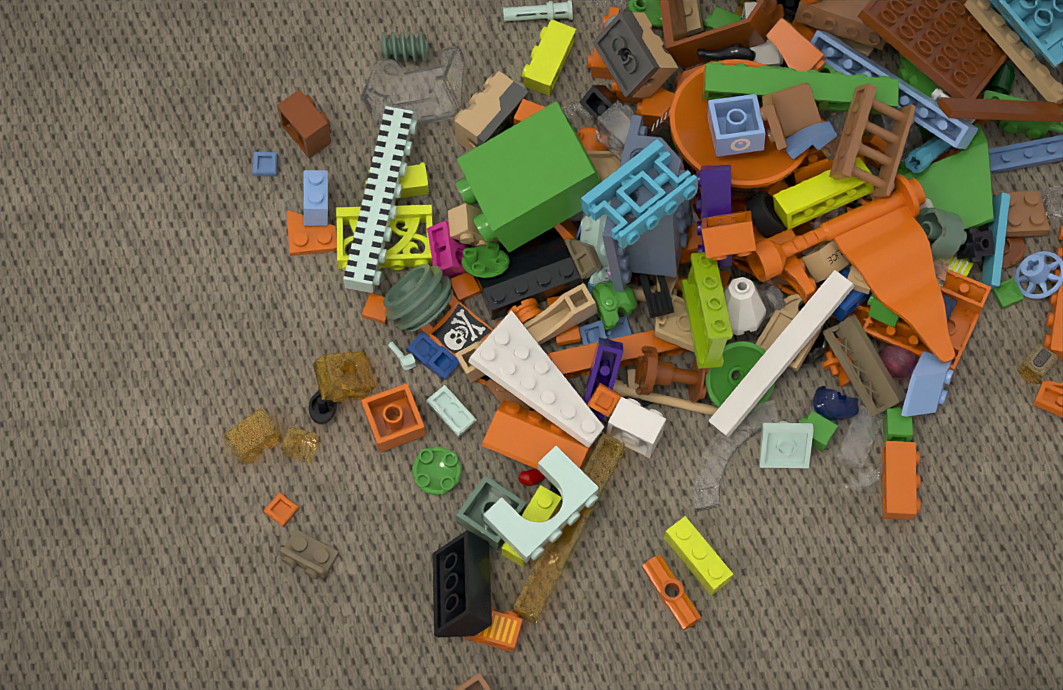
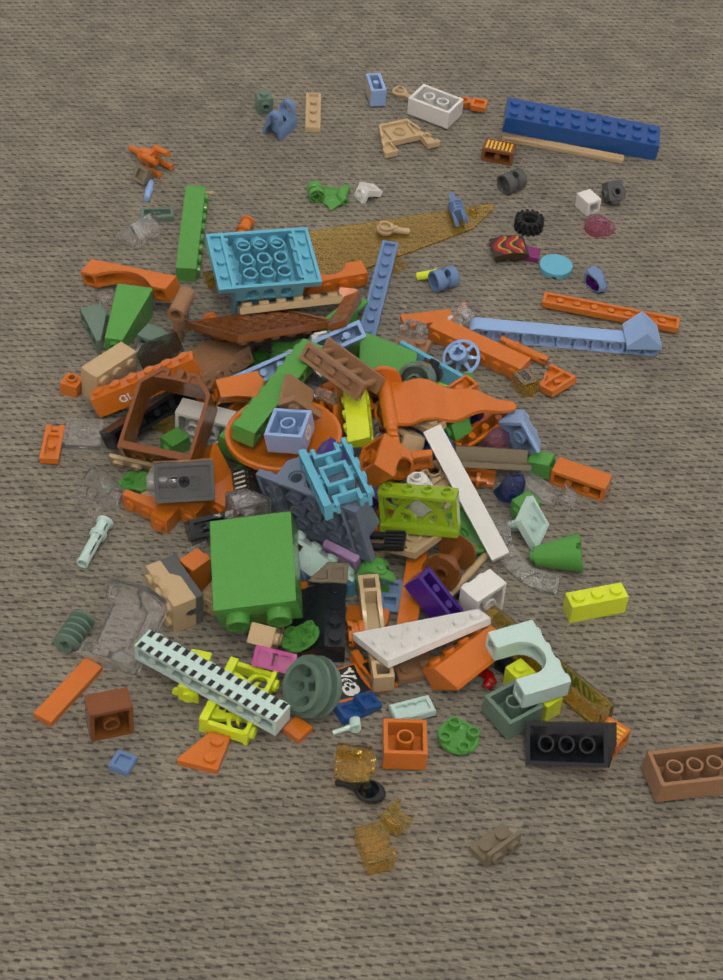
camera: 70 degrees left, 25 degrees down
(281, 509) = (447, 853): orange tile -> none
(315, 198) = (180, 731): light blue brick -> none
(325, 76) = (68, 692): none -> orange tile
(549, 57) = (137, 545): neon yellow brick -> none
(604, 400) = (455, 601): orange tile -> none
(679, 606) = (617, 628): orange piece -> none
(727, 53) = (216, 429): black piece -> none
(754, 495) = (559, 554): none -> bright green cone
(816, 134) = (320, 397): medium blue slope -> none

